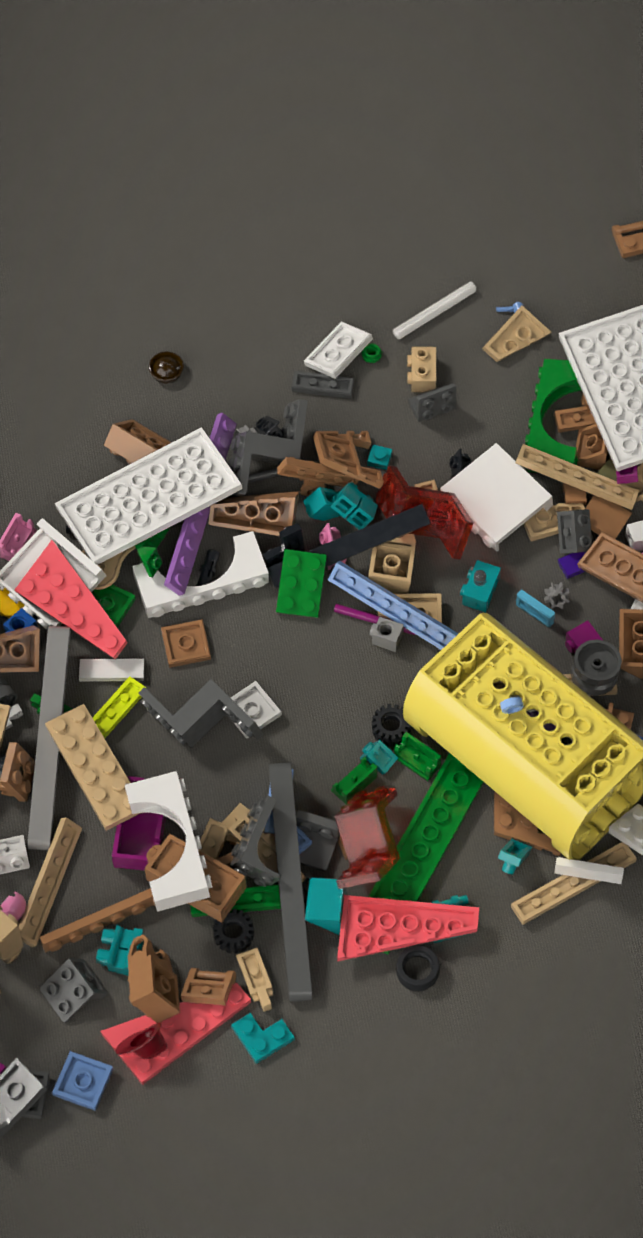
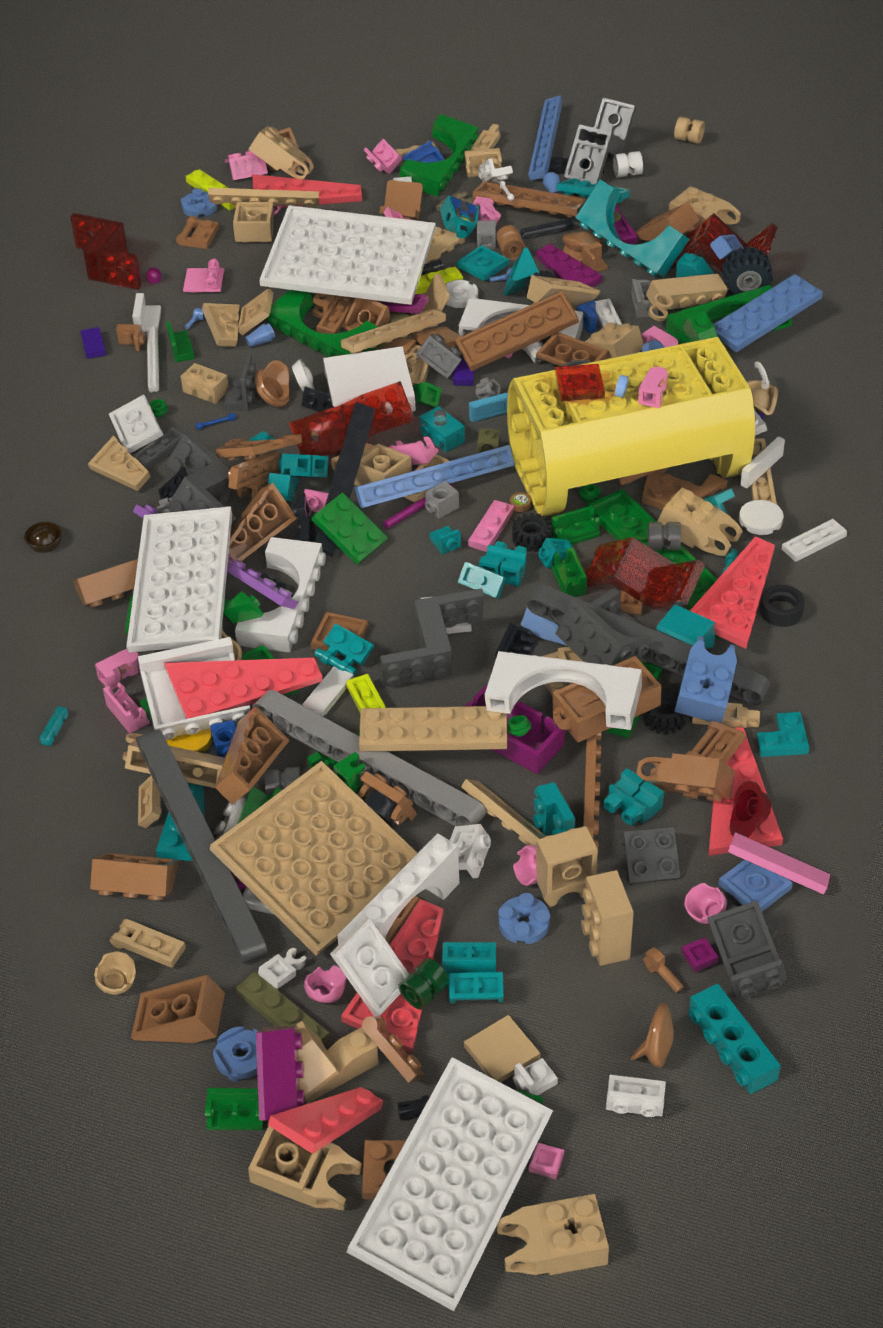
camera: 60 degrees left, 15 degrees down
(19, 732) = (349, 770): none -> green hinge
(37, 1052) = (704, 902): none -> bright pink hair
(46, 506) = (117, 668): none -> bright pink leg
(66, 897) = (551, 810): none -> teal plate
(107, 1089) = (779, 863): none -> bright pink tile
(132, 827) = (518, 725): none -> green plate
(169, 656) = (347, 644): none -> teal plate
(239, 781) = (515, 642): none -> black hinge
(274, 946) = (706, 683): none -> medium blue brick
(280, 369) = (119, 465): none -> tan wing
(306, 716) = (478, 577): none -> plate
(335, 724) = (505, 562): none -> teal hips
(343, 662) = (446, 539): none -> teal bracket
(381, 689) = (491, 525): none -> bright pink plate
(400, 414) = (231, 417): none -> blue hinge
(427, 252) = (93, 342): none -> dark purple tile
(429, 580) = (419, 453): none -> bright pink hinge
(432, 831) = (664, 535): none -> dark grey wheel
(448, 423) = (273, 383): none -> medium nougat piece
(450, 277) = (131, 335): none -> medium nougat bracket
(465, 317) = (180, 344): none -> green panel
(474, 859) = (700, 522): none -> tan brick
(477, 440) = (303, 375): none -> white hat
(488, 268) = (145, 315): none -> white panel
(497, 669) = (579, 382): none -> clear red plate
(516, 901) = (761, 517): none -> white tile
(519, 374) = (260, 336): none -> medium blue cone
(519, 549) = (427, 394): none -> green panel
(527, 960) = (814, 540): none -> white tile
(528, 730) = (652, 387): none -> bright pink leg
(540, 351) = (255, 311): none -> tan tile
(545, 185) = (105, 251): none -> clear red bracket
(546, 241) = (153, 275): none -> magenta hinge
(571, 283) = (204, 279): none -> bright pink hinge

